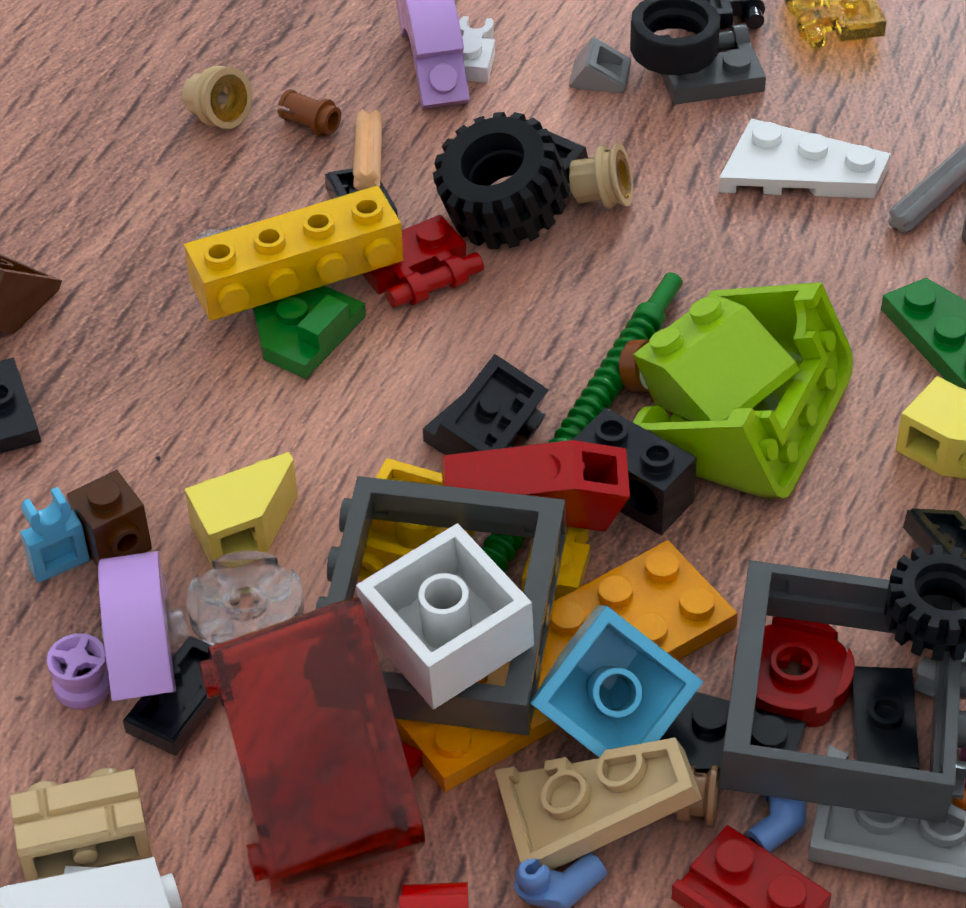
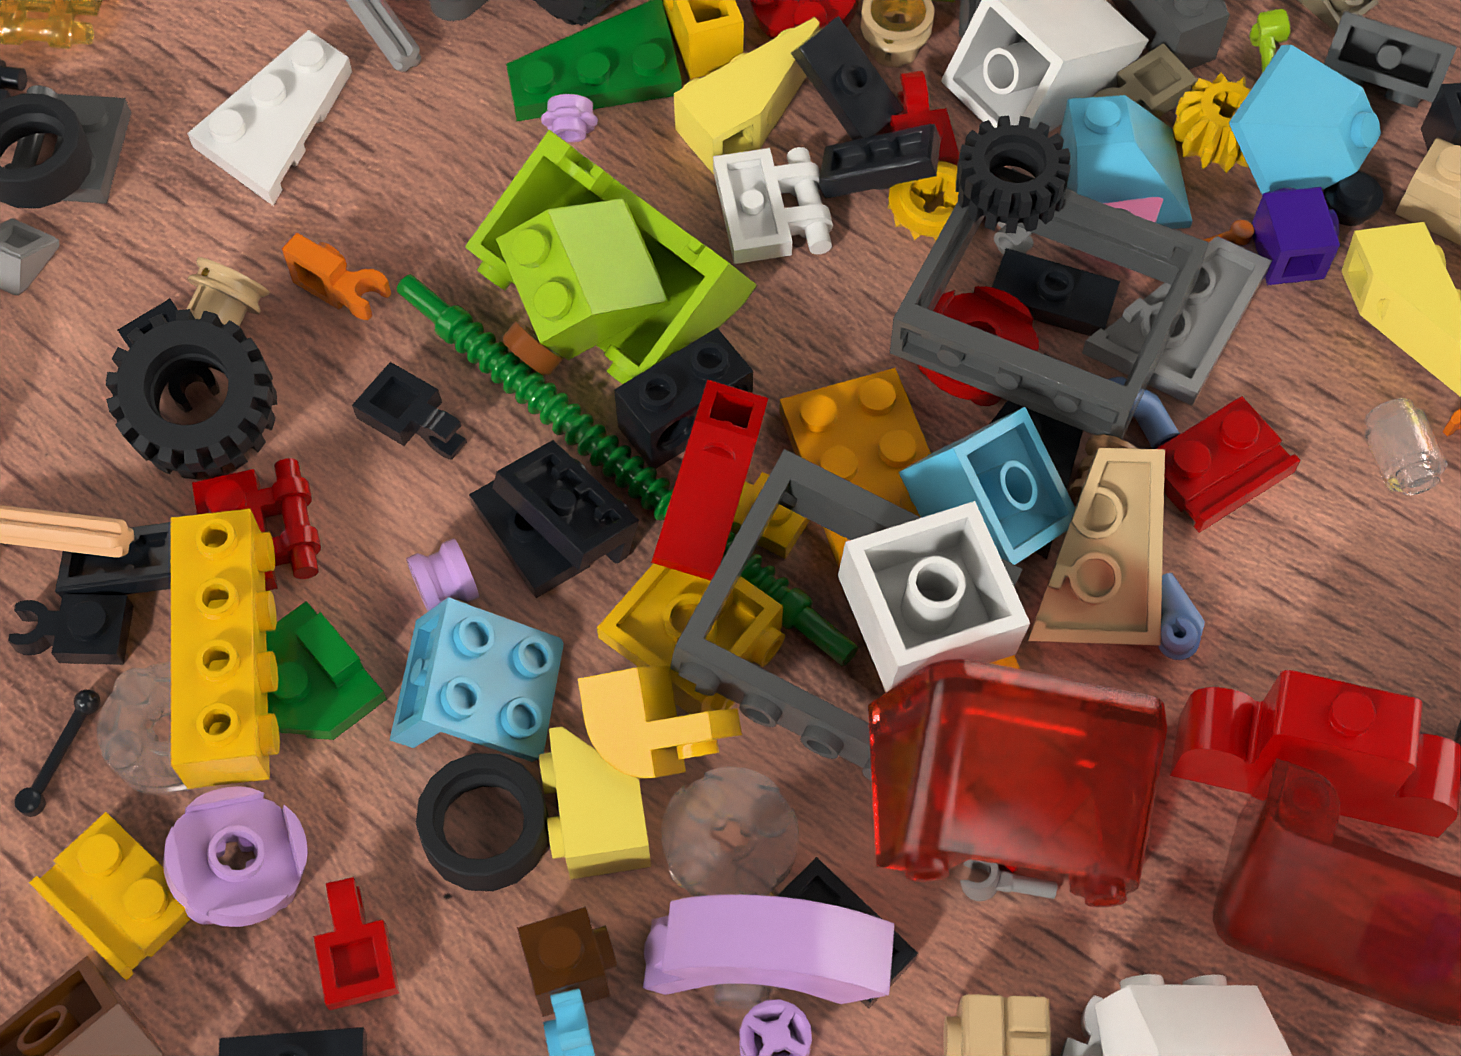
camera: 75 degrees left, 15 degrees up
(94, 409) = (357, 955): none -> red plate
(108, 280) = (113, 895): none -> yellow plate
(141, 348) = (213, 890): none -> lavender plate
(168, 219) = (31, 799): none -> black hinge
(208, 422) = (466, 775): none -> black tyre
(301, 188) = (82, 632): none -> black plate
(306, 503) = (637, 724): none -> yellow brick
(329, 417) = (478, 681): none -> medium azure bracket
(409, 370) = (443, 575): none -> lavender wheel
(553, 308) = (406, 406): none -> black plate
(656, 227) = (324, 274): none -> orange plate
(867, 473) = (754, 207): none -> white plate
(891, 332) = (569, 117): none -> lavender plate

